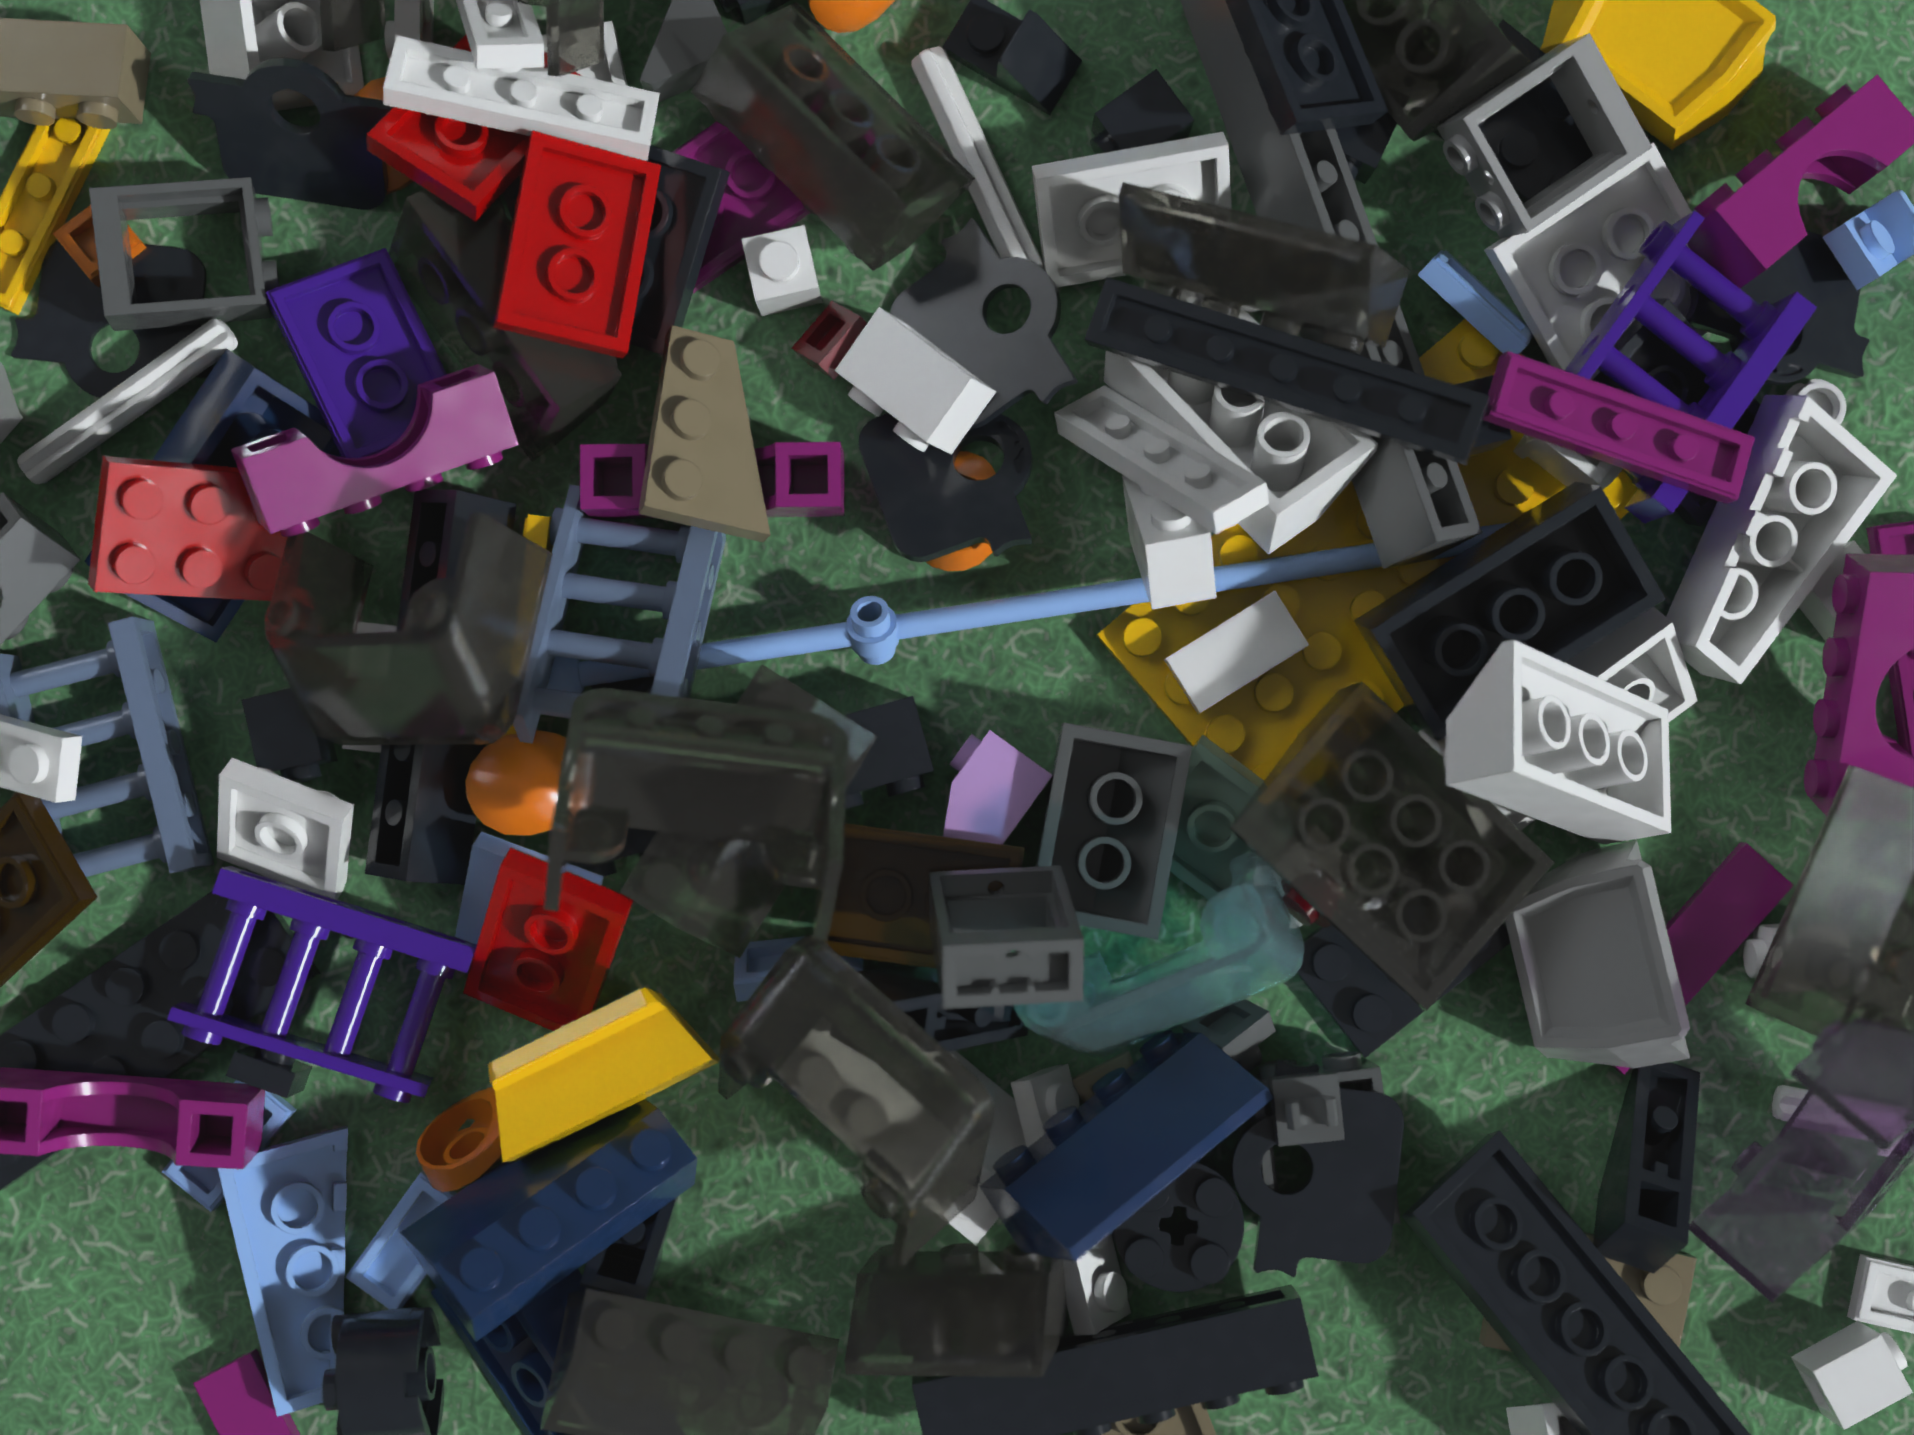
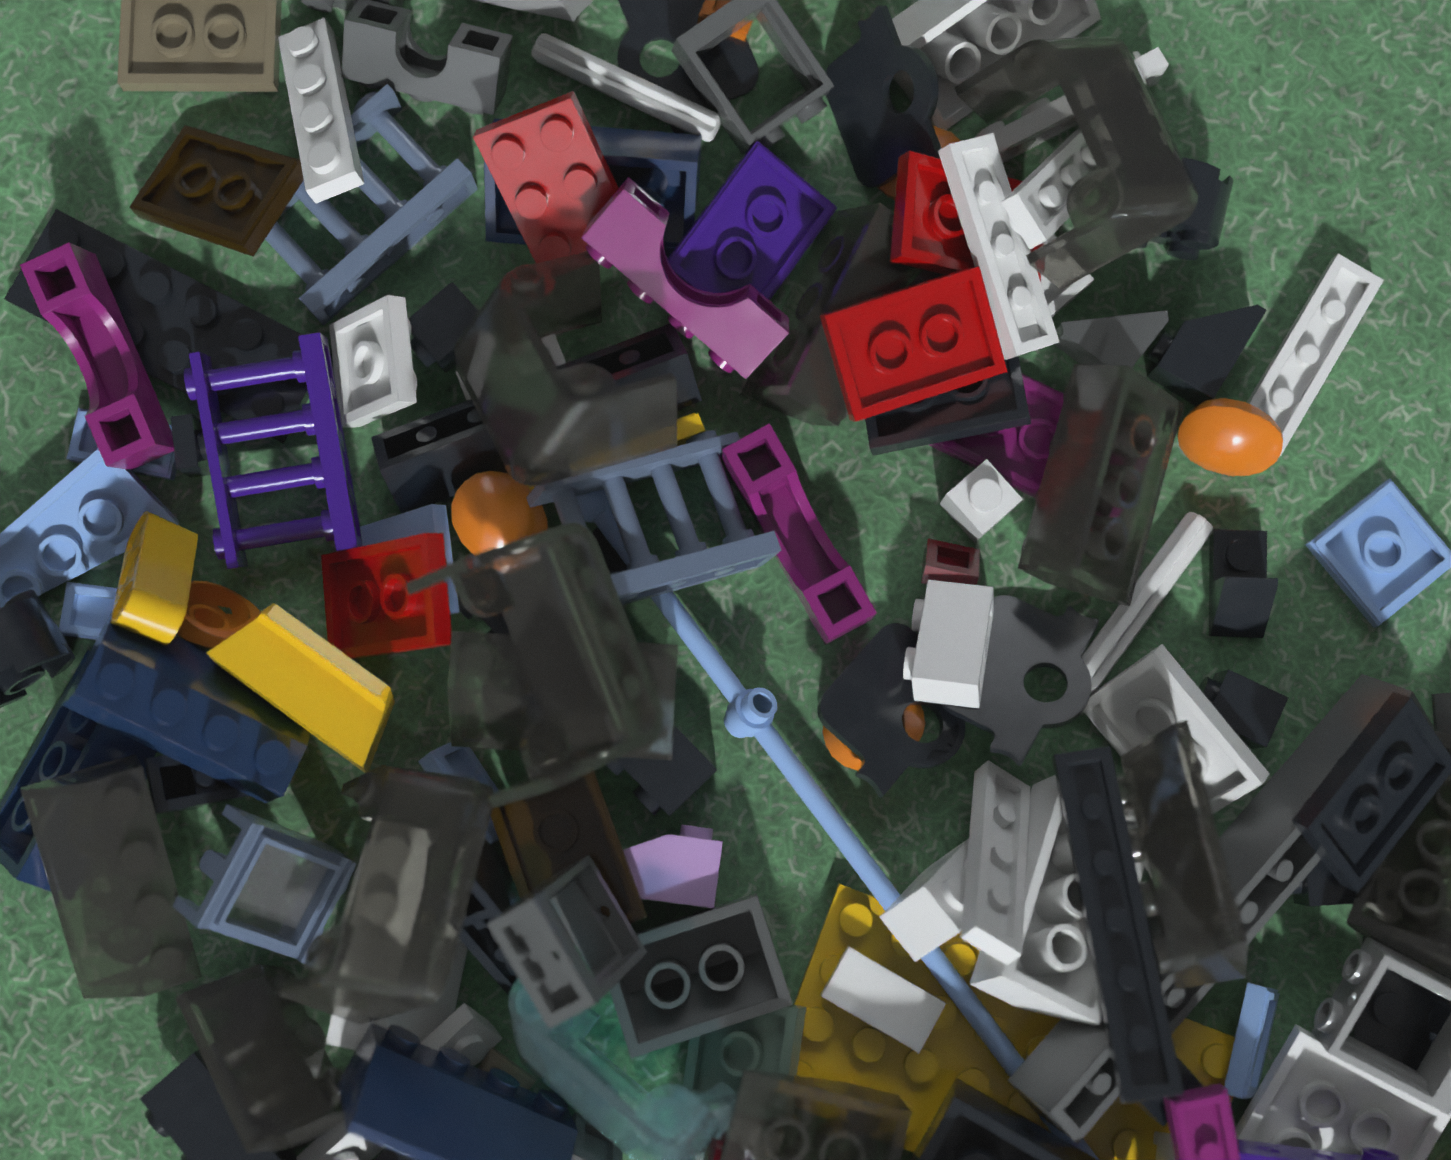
camera: 60 degrees right, 5 degrees down
(393, 1178) = (155, 579): none -> yellow beam
(701, 441) = (820, 510): dark tan wing -> none
(785, 1220) = (270, 887): none -> sand blue window

